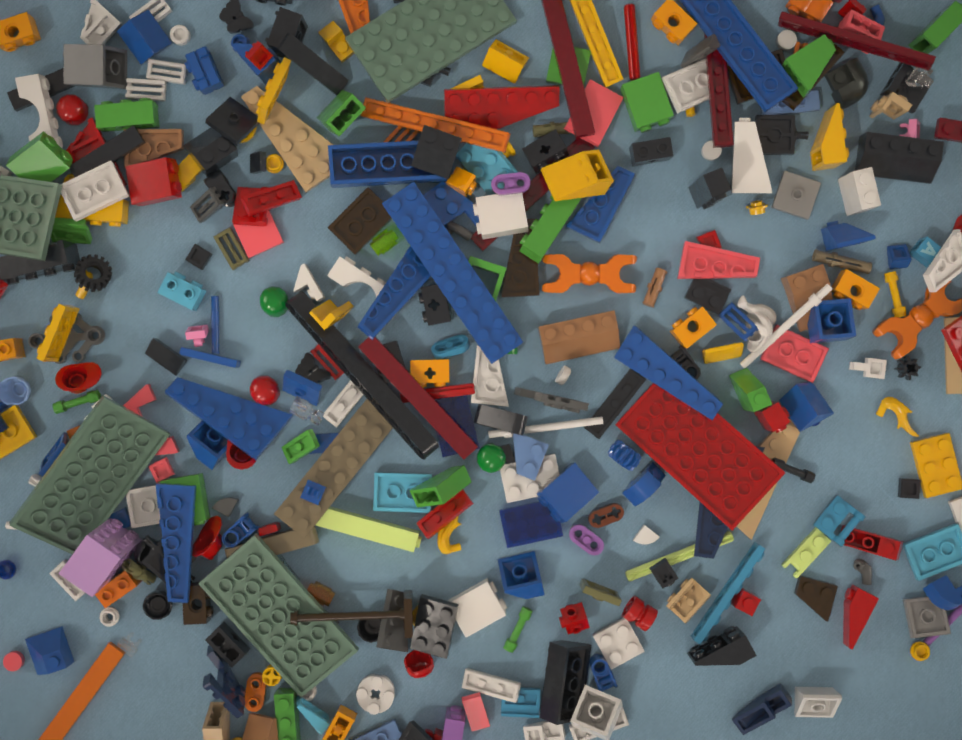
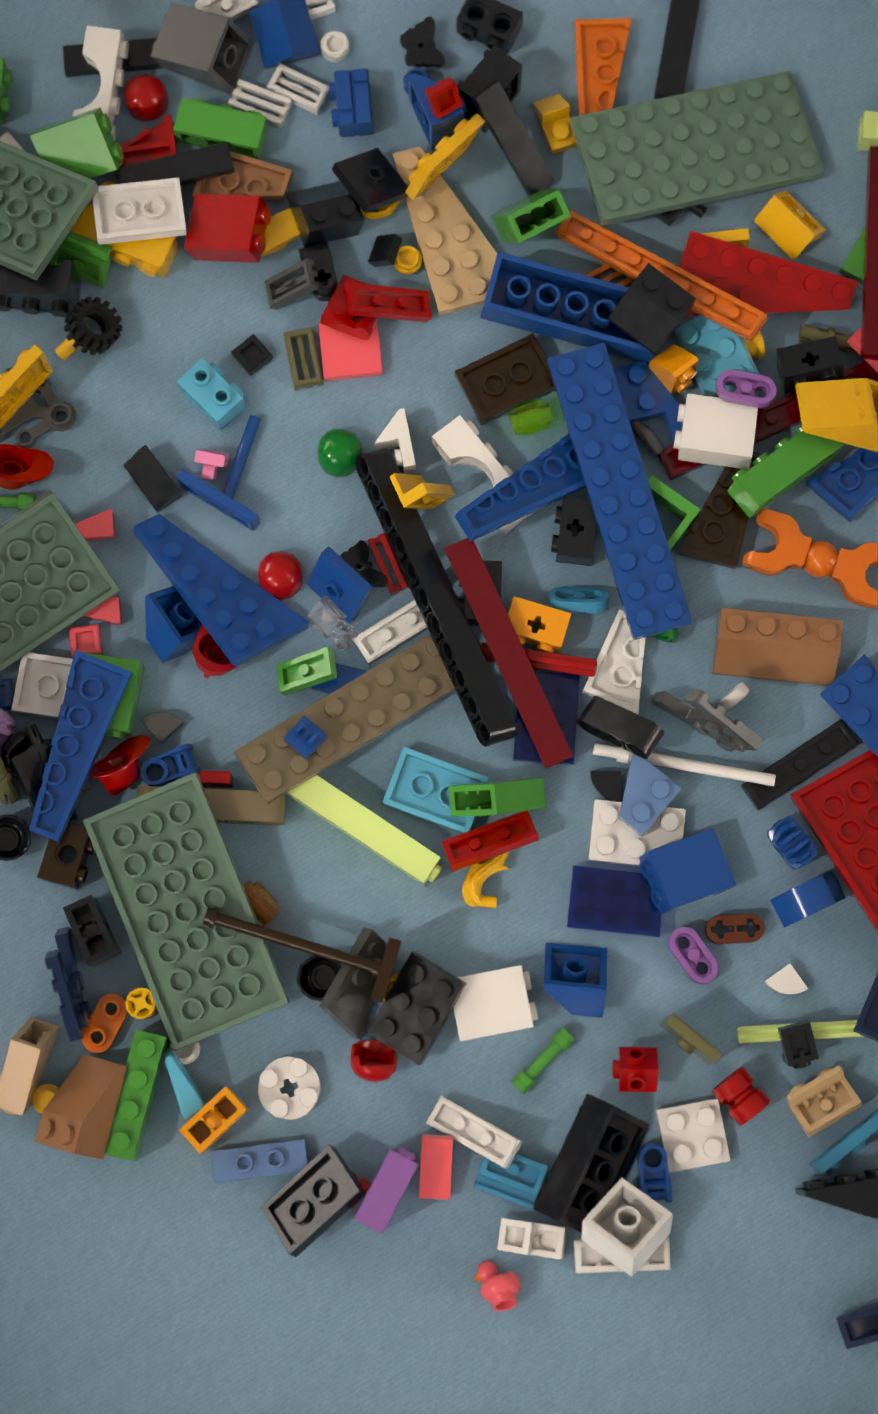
camera: 20 degrees right, 10 degrees down
(491, 458) = (586, 782): green hair -> none

